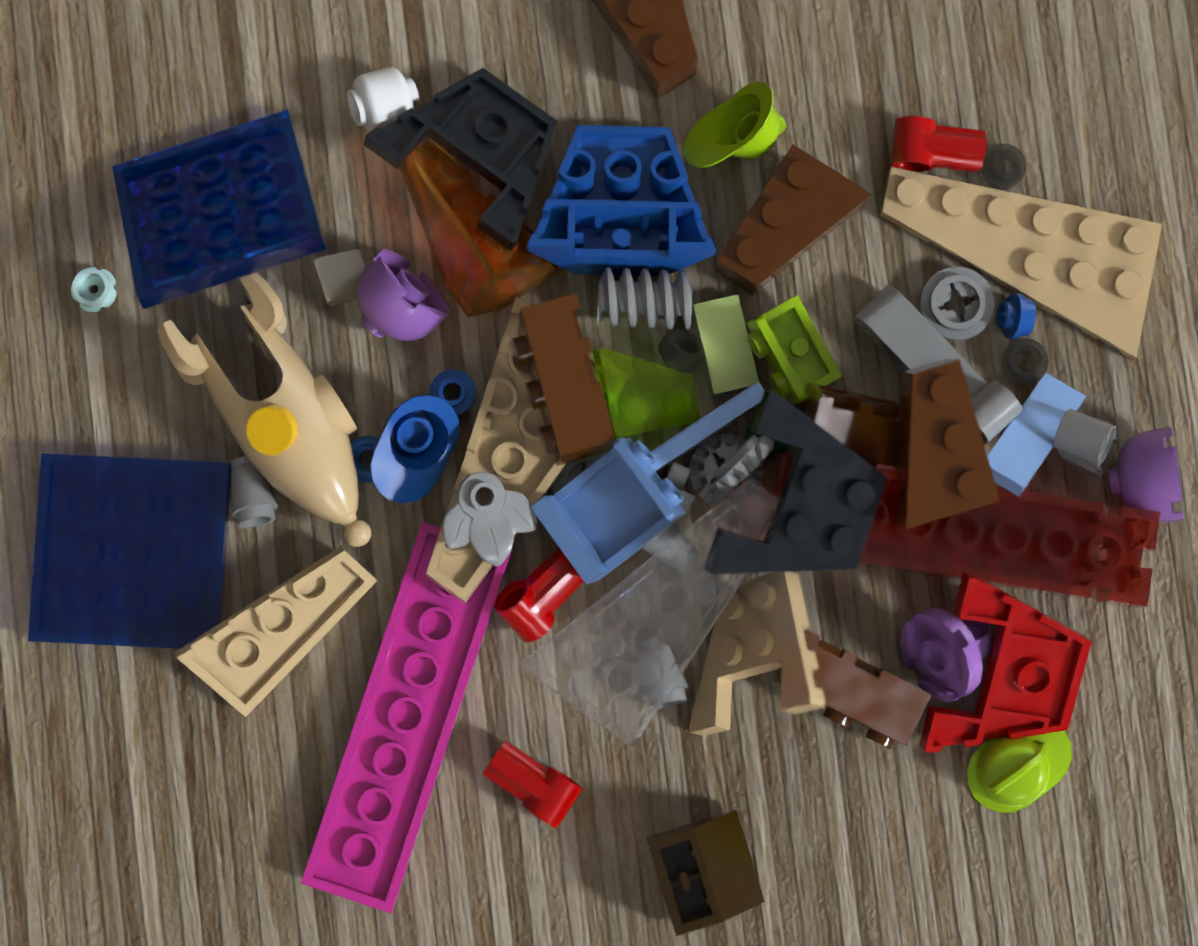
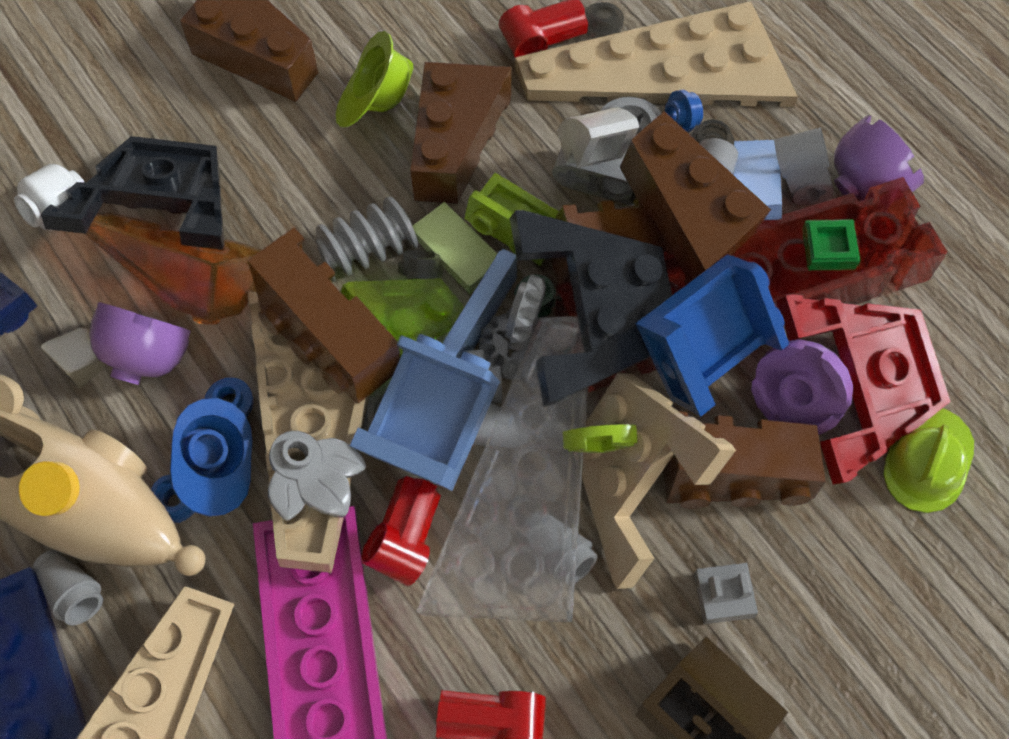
camera: 25 degrees left, 20 degrees down
(622, 205) = (307, 177): blue wedge -> none
(739, 618) = (600, 438): none -> lime tile
(774, 783) = (725, 593): none -> light grey tile
(883, 574) = (711, 329): none -> blue panel
(896, 332) = (597, 136): none -> white slope
(1045, 546) = (830, 245): none -> green tile

